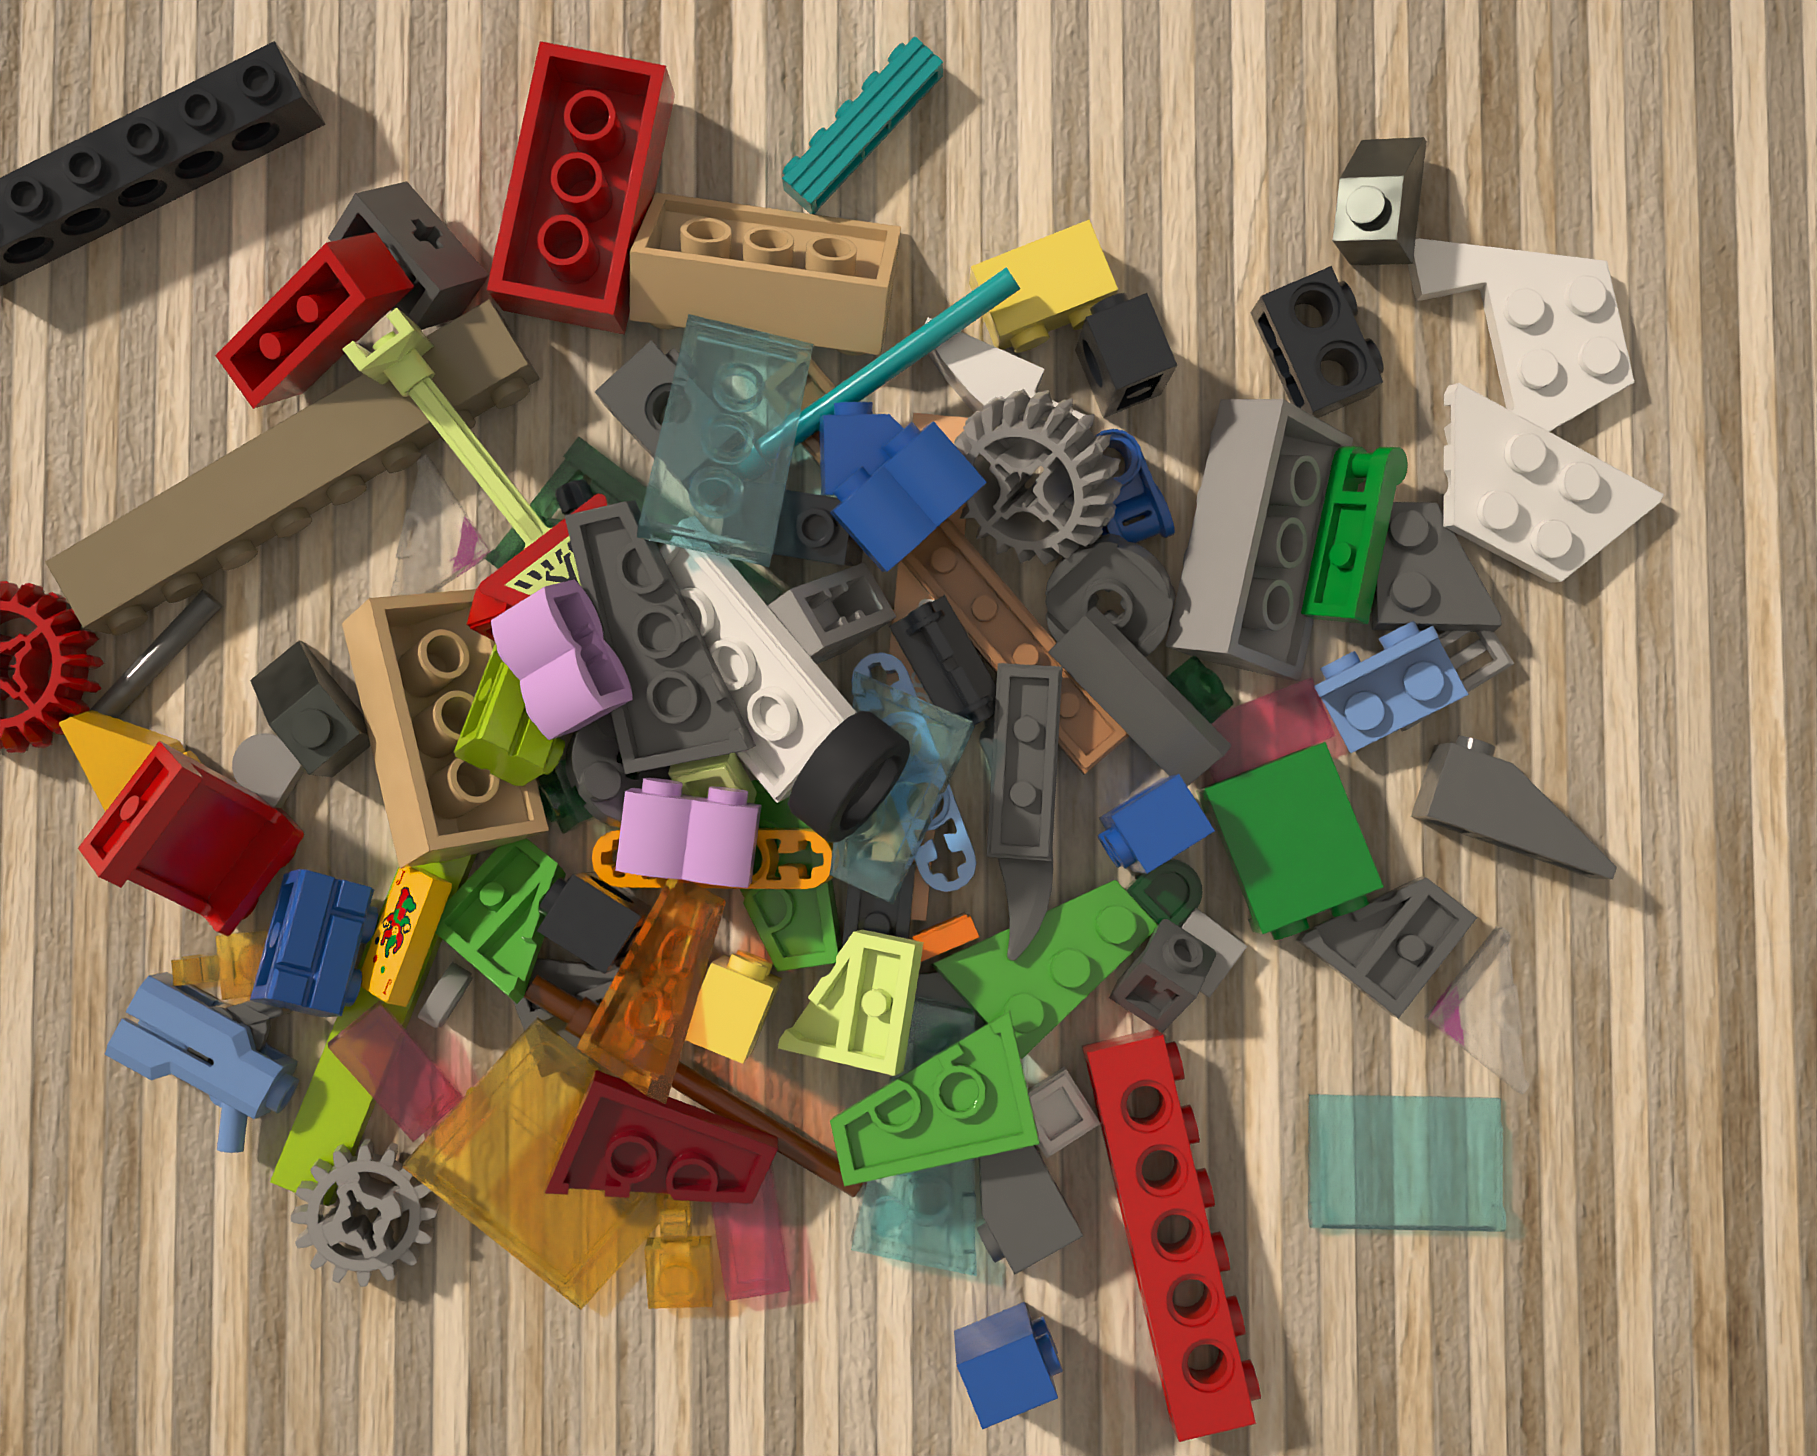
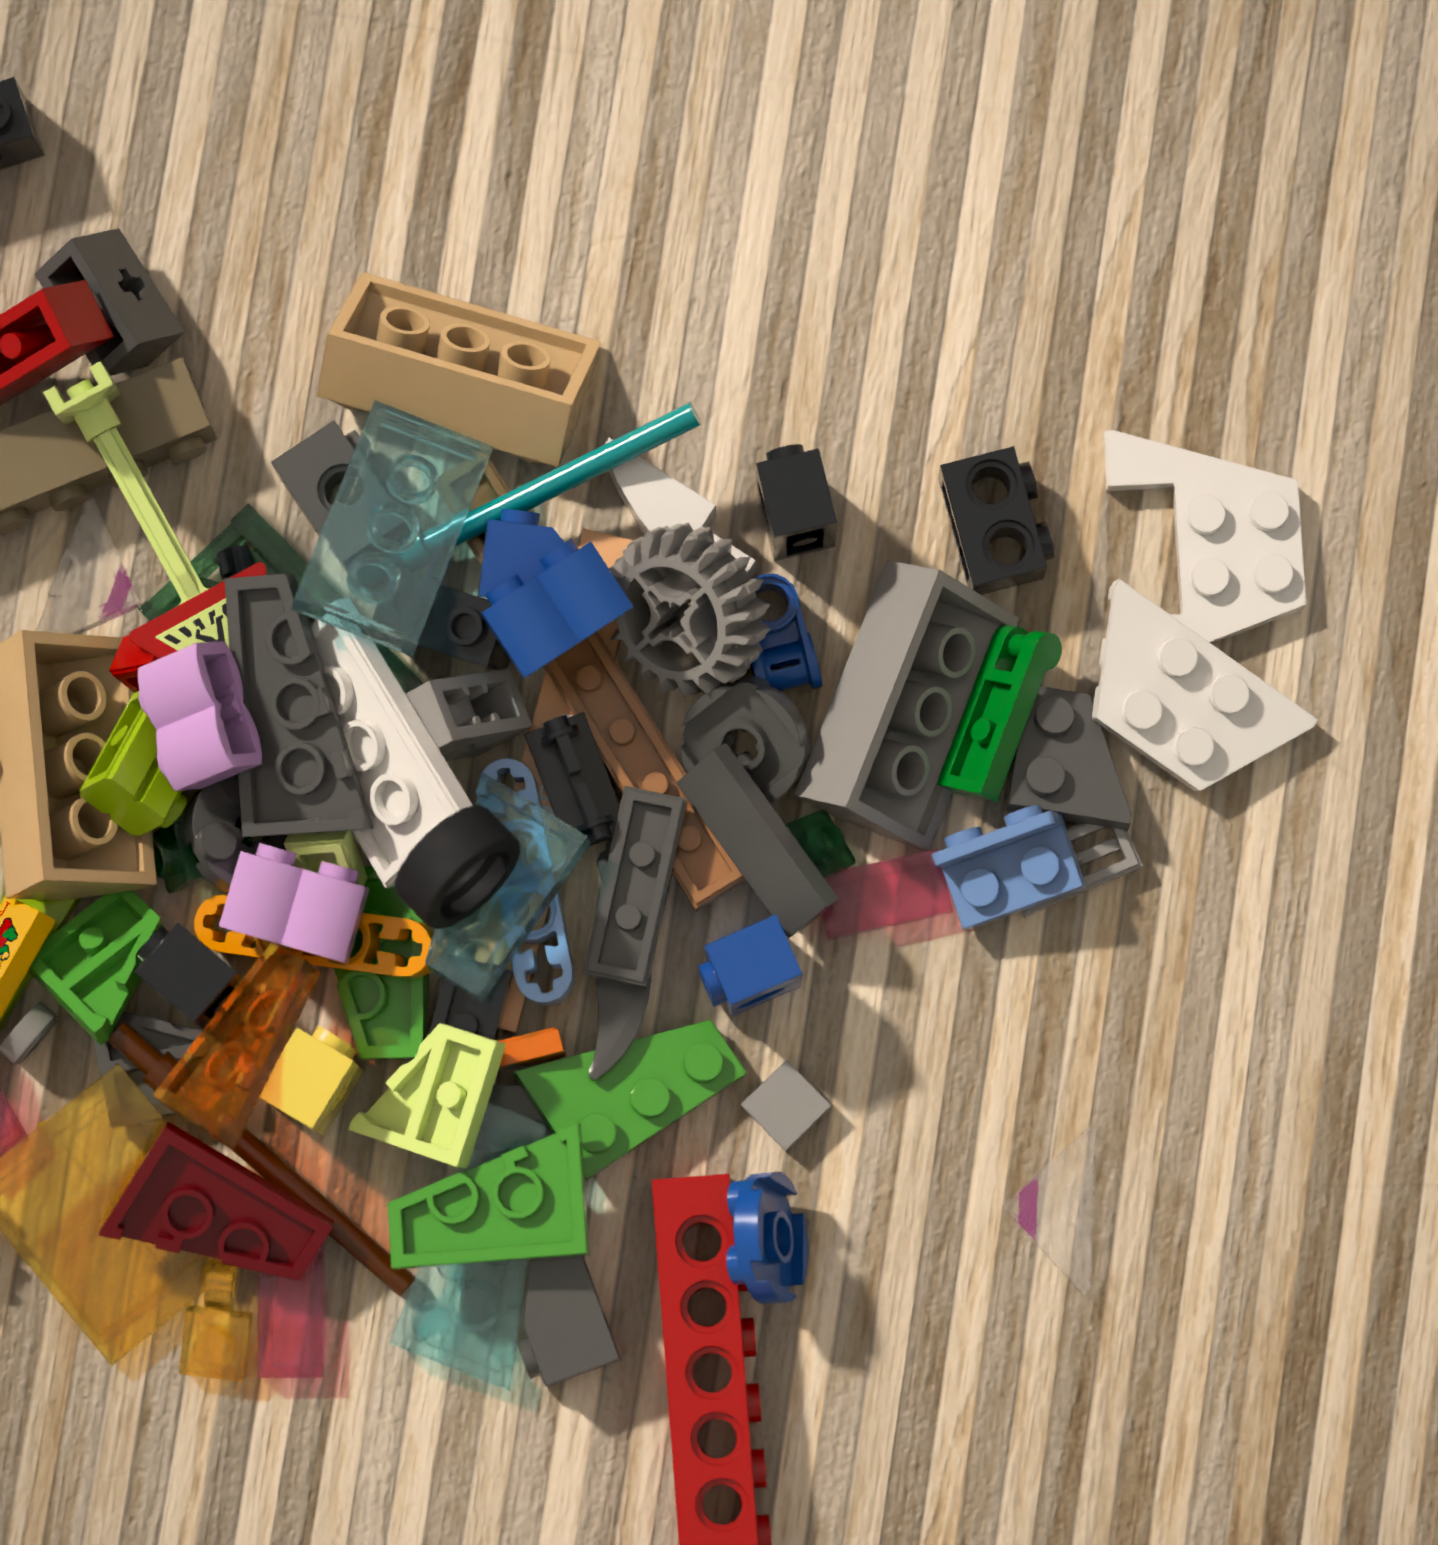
camera: 10 degrees right, 5 degrees down
(580, 186) = (289, 261): red brick -> none
(862, 124) = (577, 236): teal piece -> none
(1007, 1364) = (524, 1470): blue brick -> none
(1058, 286) = (738, 426): light yellow brick -> none
(1060, 1112) = (618, 1244): white tile -> none
(1164, 976) = (742, 1120): dark grey bracket -> none
(1168, 892) = (761, 1041): dark green tile -> none
(1211, 1093) = (768, 1238): none -> blue plate
(1292, 841) = (889, 1006): green panel -> none
(1380, 202) = (1077, 388): pearl dark grey slope -> none
(1392, 942) = (975, 1122): dark grey wing -> none
(1405, 1163) = (958, 1348): clear light blue piece -> none
(1499, 805) = (1100, 1002): dark grey slope -> none

